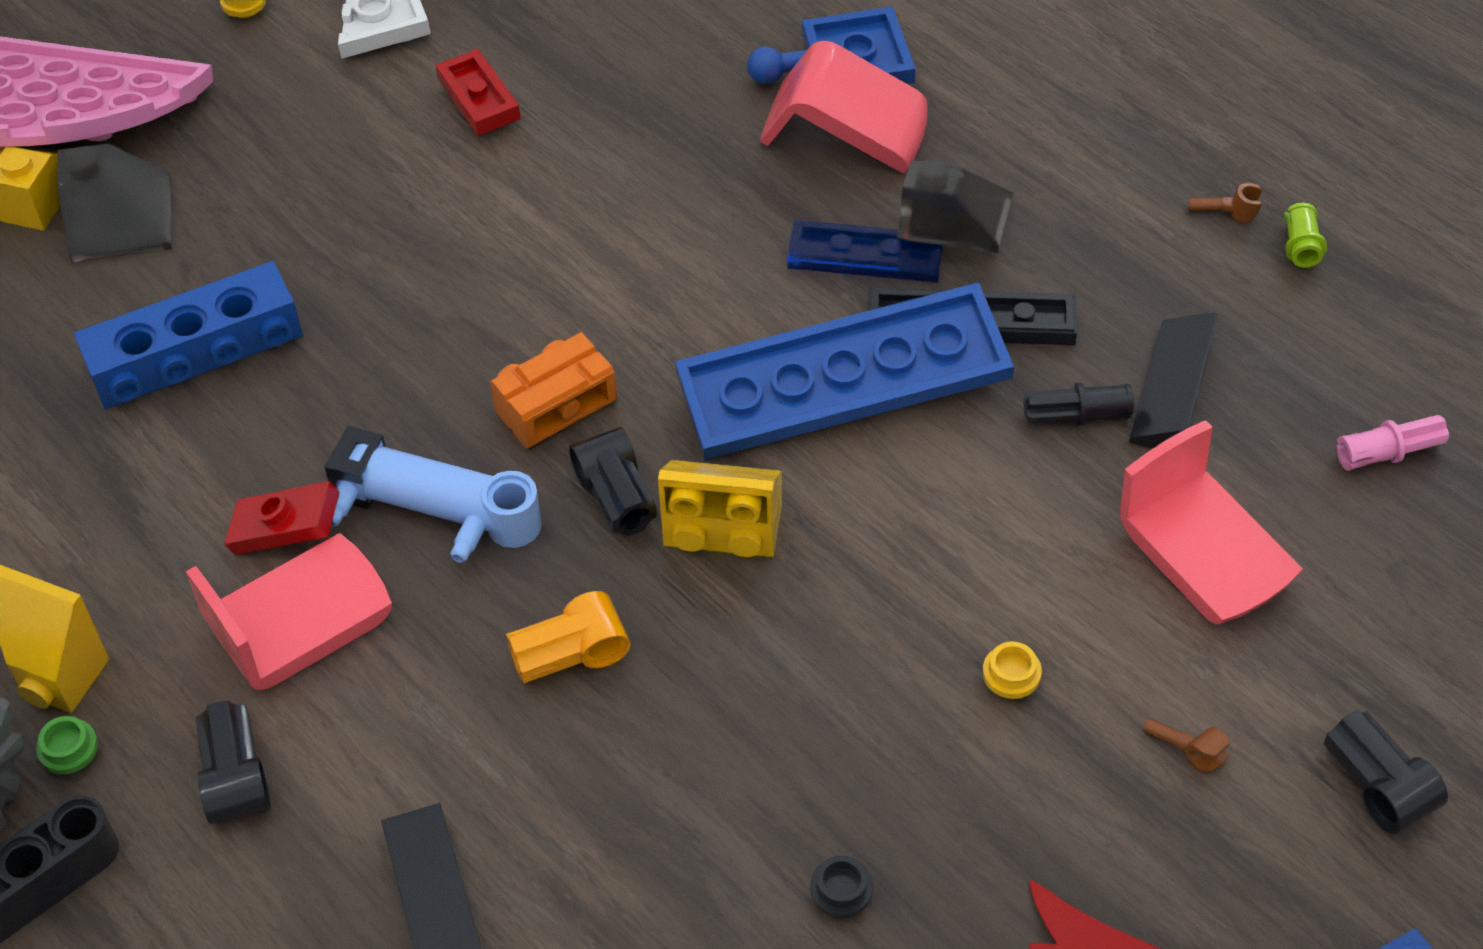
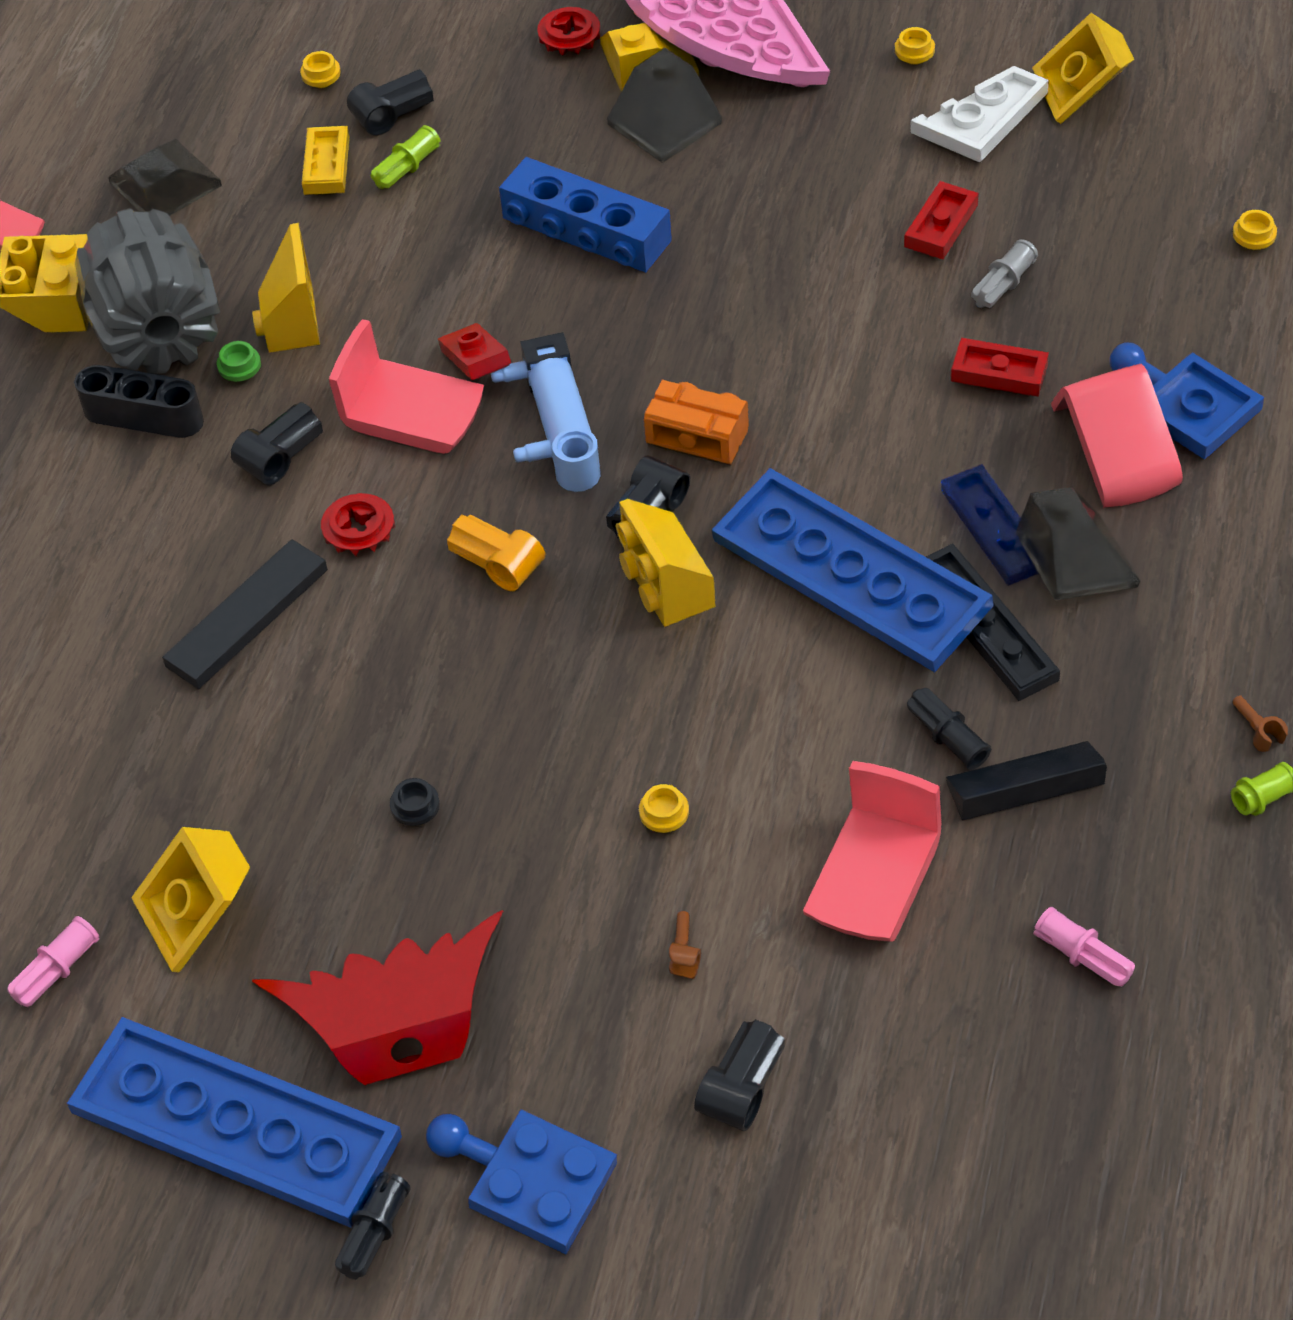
camera: 60 degrees right, 0 degrees up
(396, 732) = (366, 510): none -> red gear
(584, 87) = (1004, 274): none -> light grey axle
(692, 147) = (999, 367): none -> red plate

